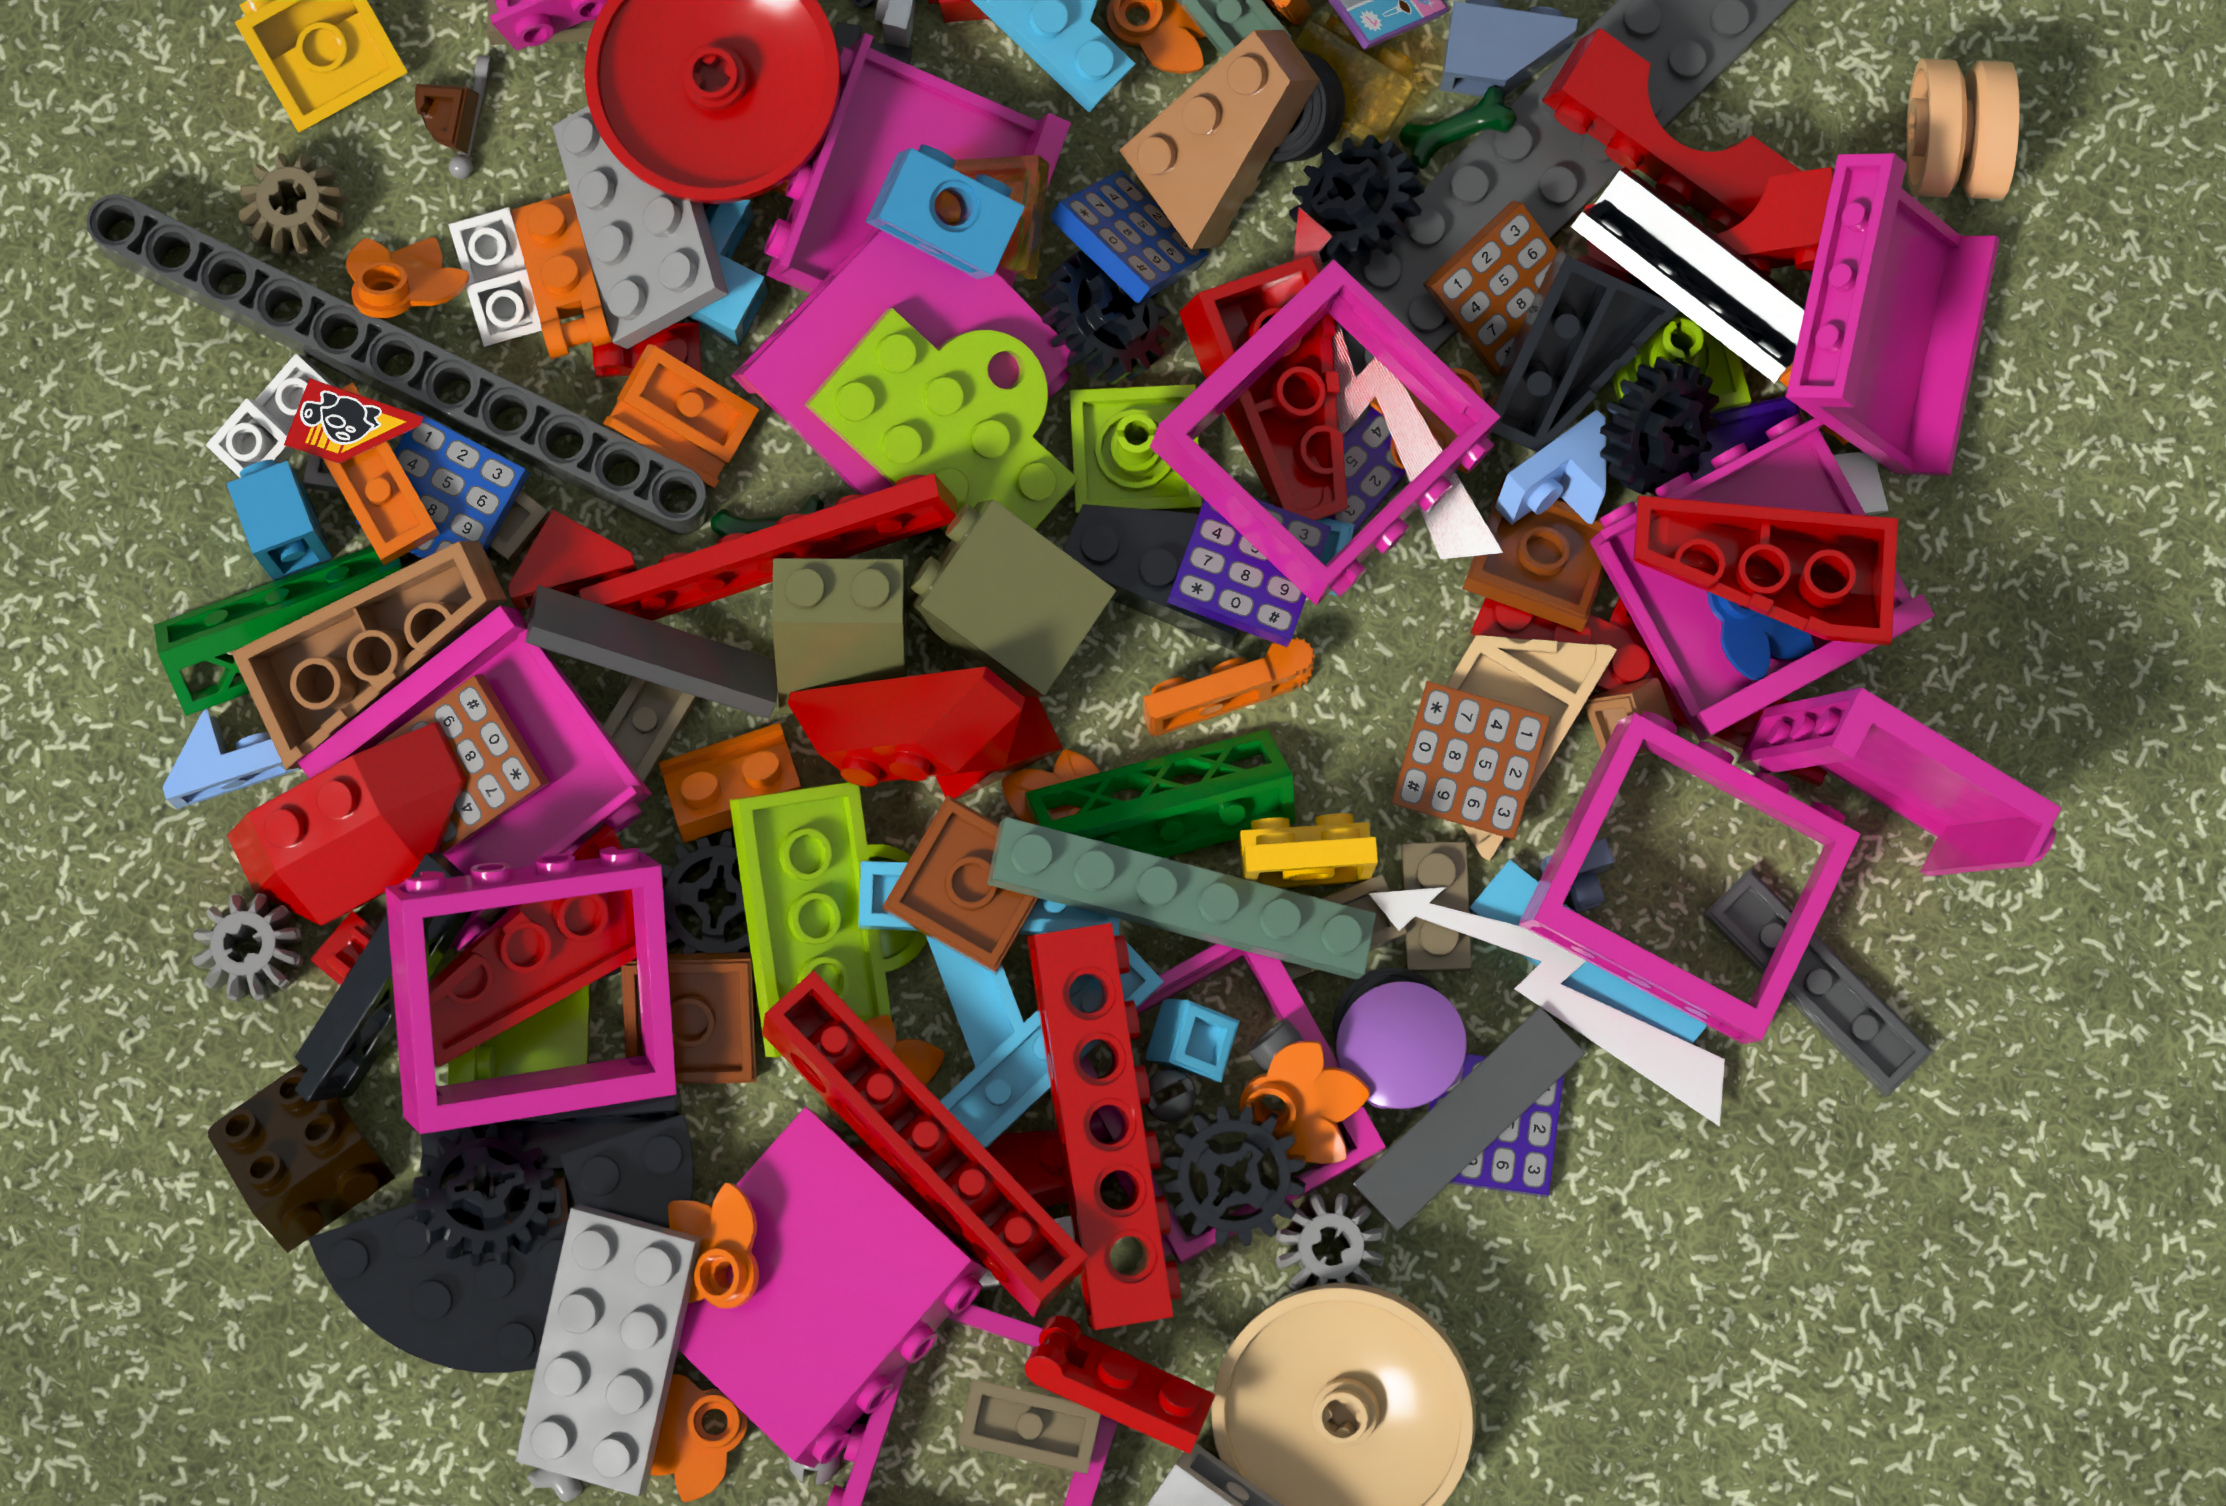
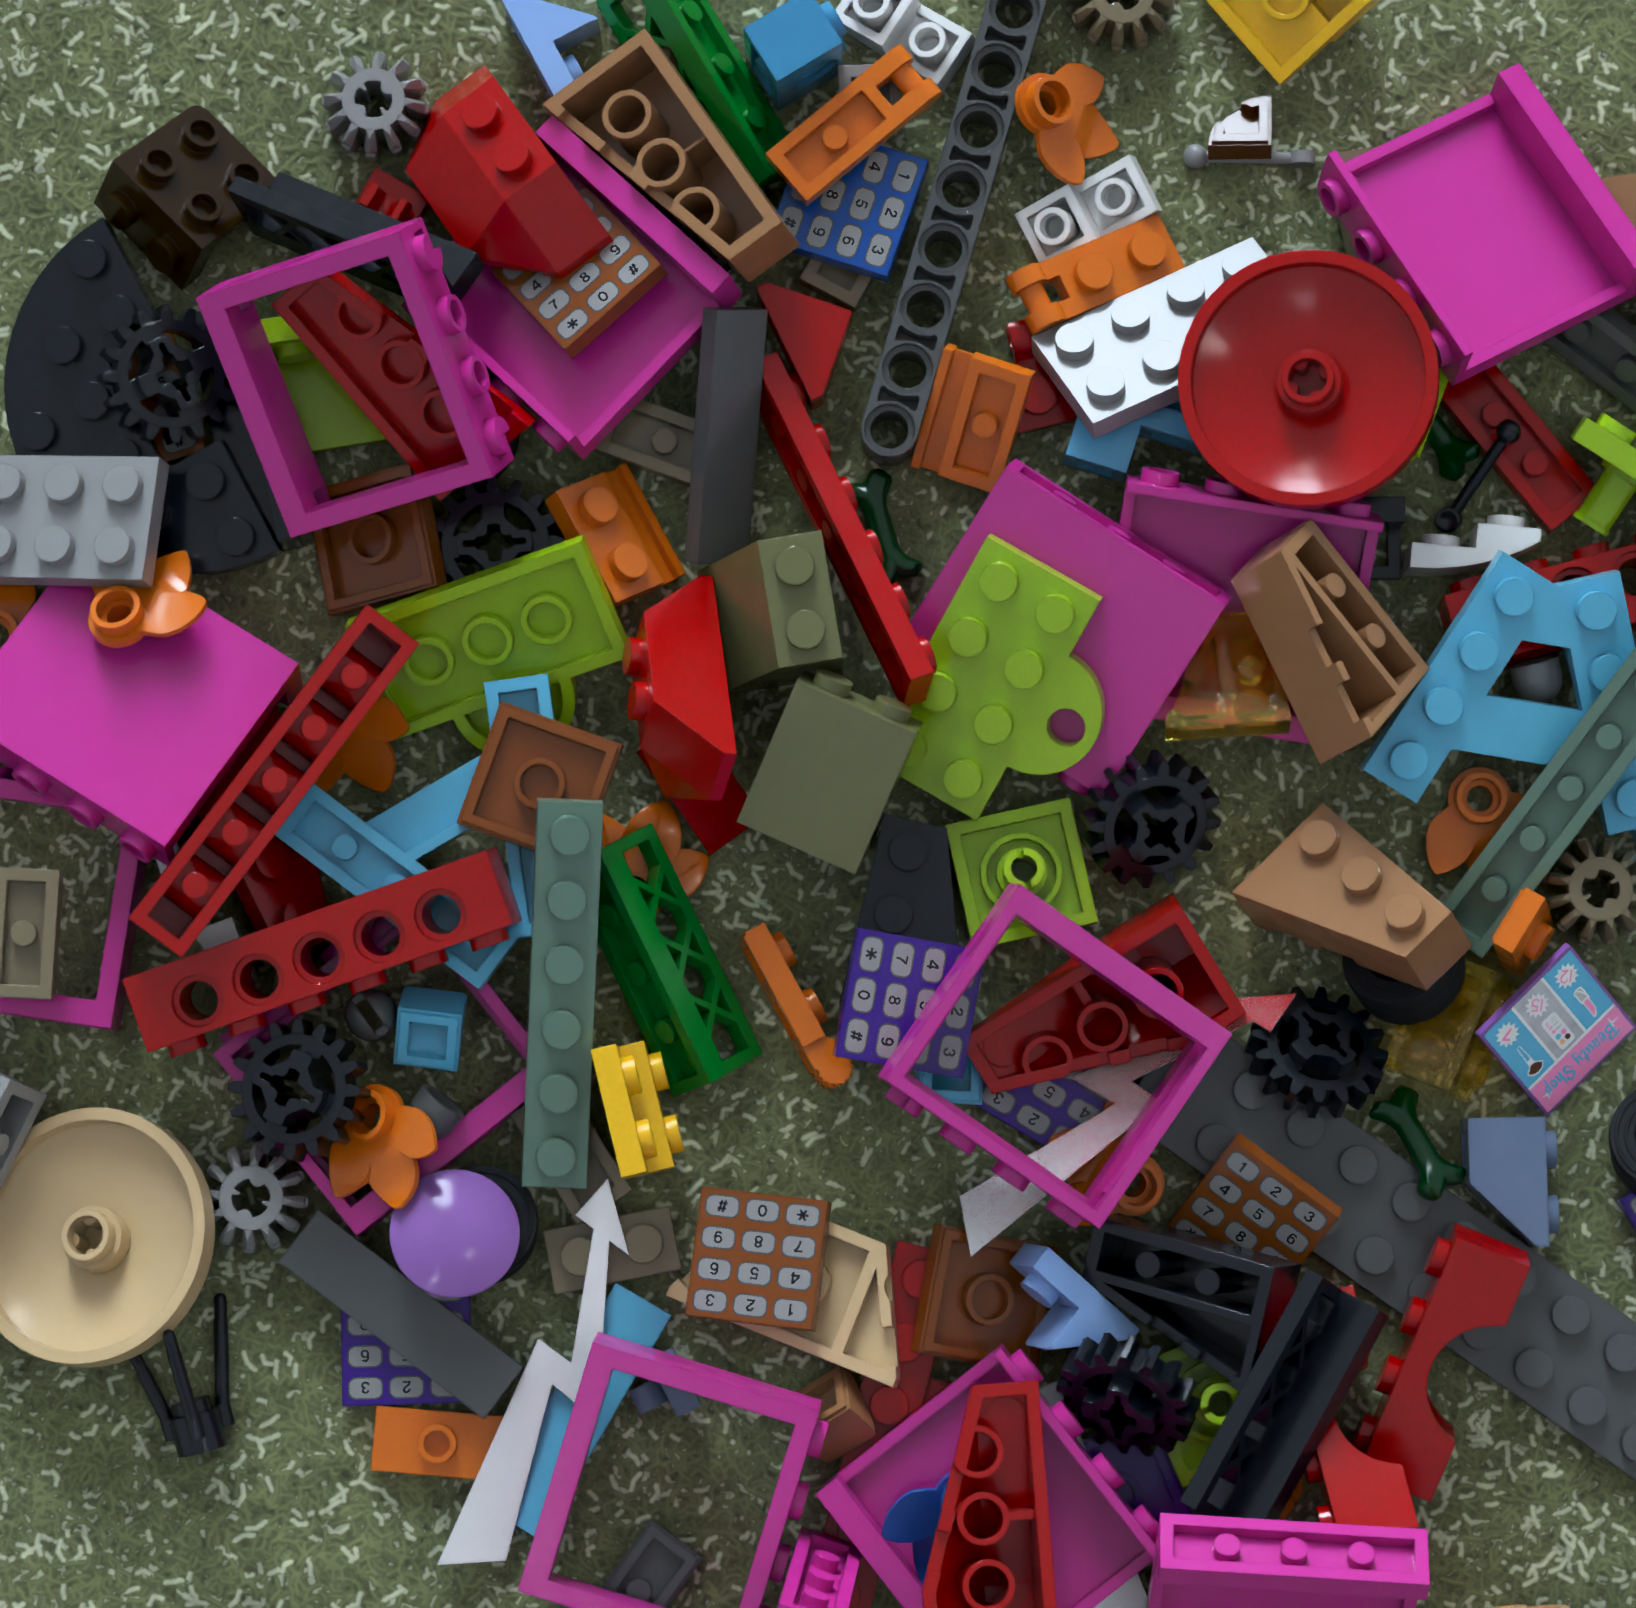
camera: 85 degrees right, 5 degrees up
(344, 424) = (894, 91): sticker -> none
(908, 211) = (1181, 667): dark azure brick -> none
(971, 103) = (1326, 639): none -> medium nougat wedge
(1118, 1385) = (76, 1012): red plate -> none
(1127, 236) = (1234, 824): blue tile -> none
(1540, 1341) = (195, 1423): none -> black plant
(1596, 1113) = (431, 1441): none -> orange plate

